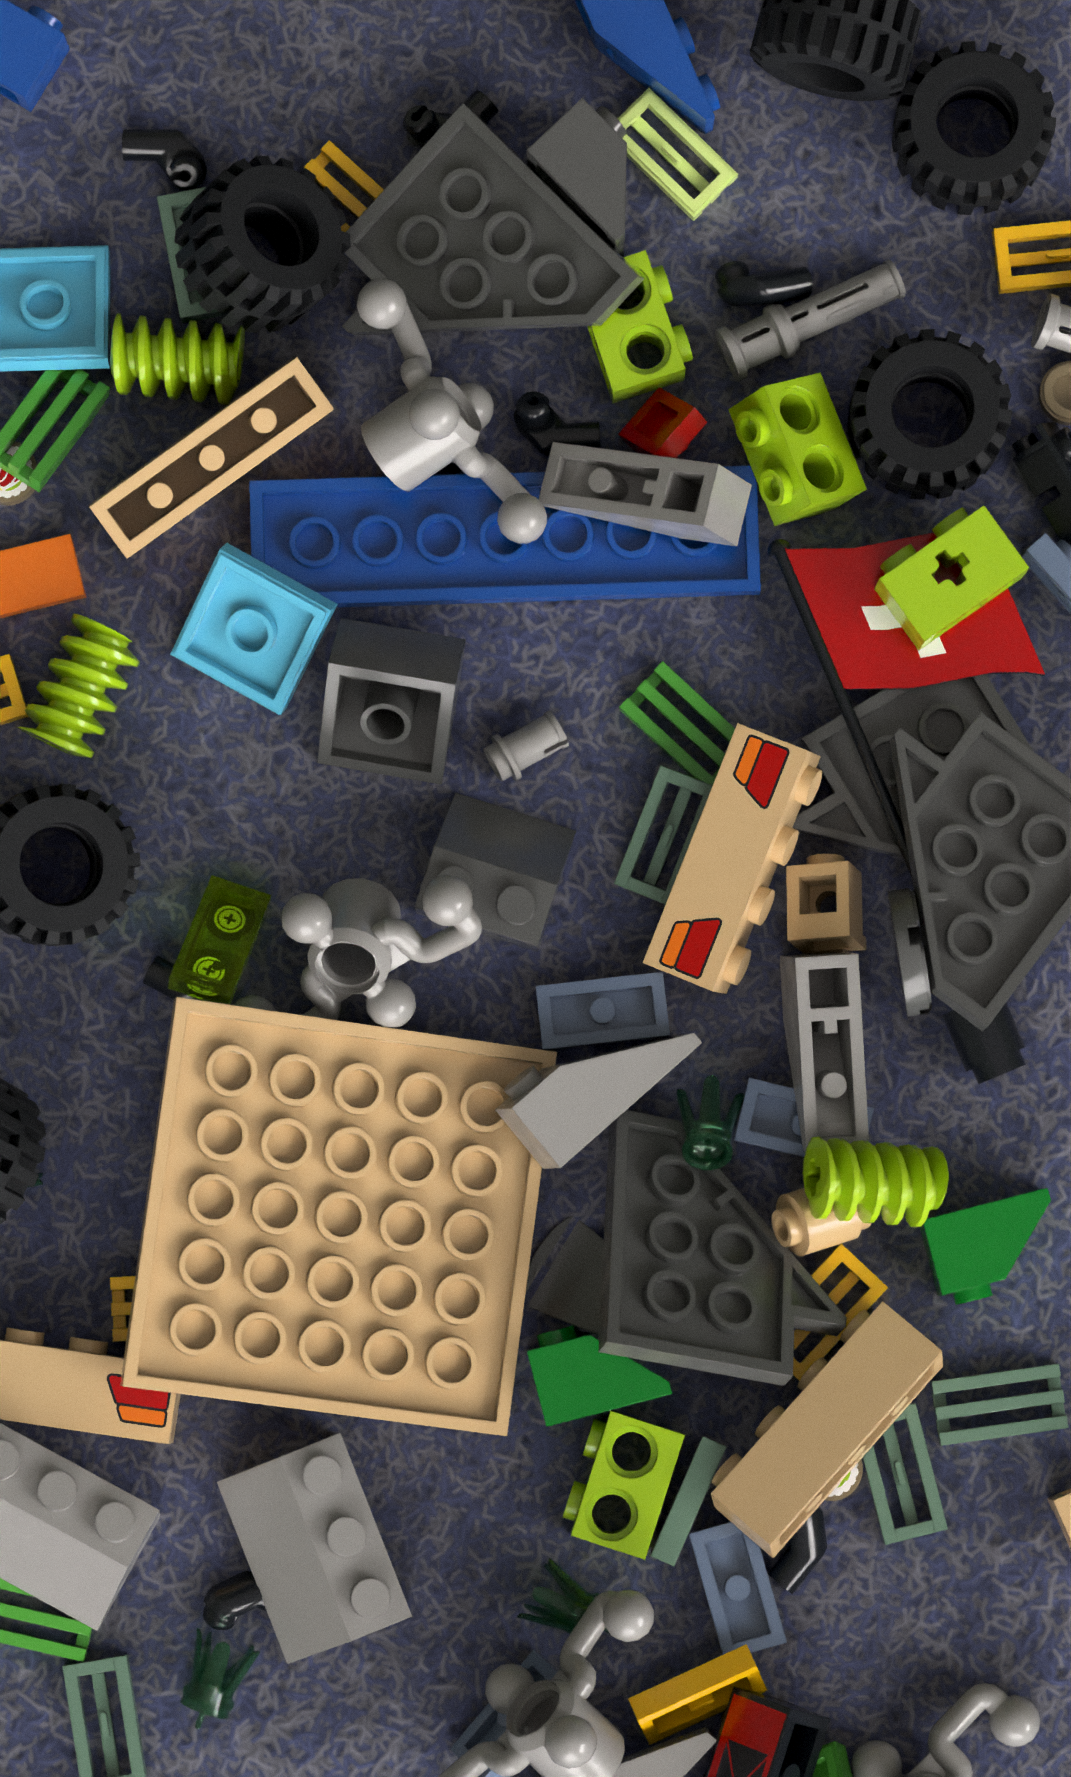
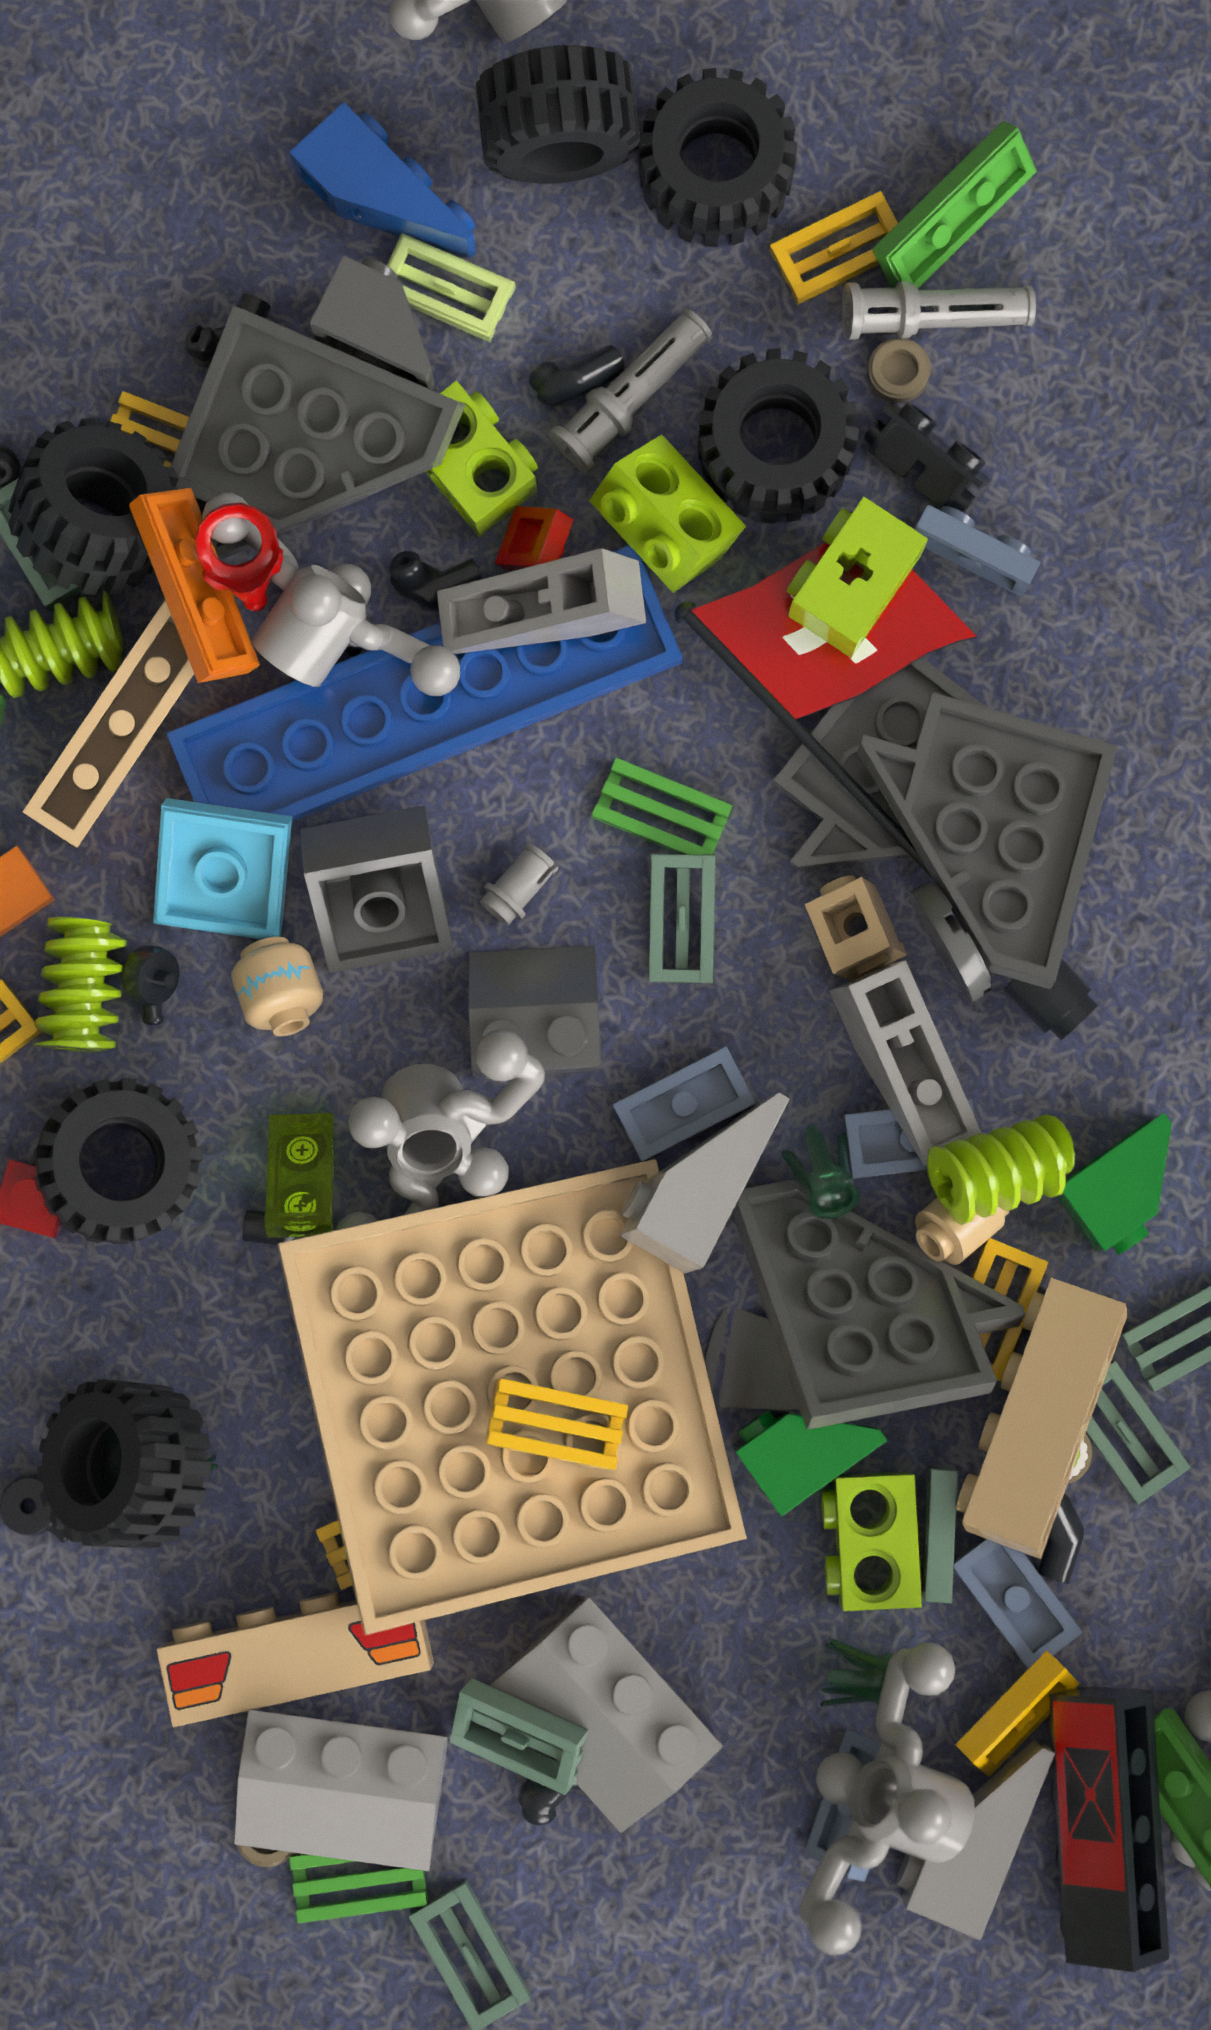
camera: 20 degrees left, 0 degrees up
(148, 706) = (150, 979): none -> black piece
(210, 1686) = (557, 1879): clear green piece -> none
(231, 1529) = (521, 1727): none -> sand green tile
(263, 757) = (277, 986): none -> tan head
(327, 354) = (203, 616): none -> orange tile
(380, 366) = (250, 578): none -> red piece
(417, 1290) = (611, 1435): none -> yellow tile
(733, 860) = (753, 916): tan brick -> none

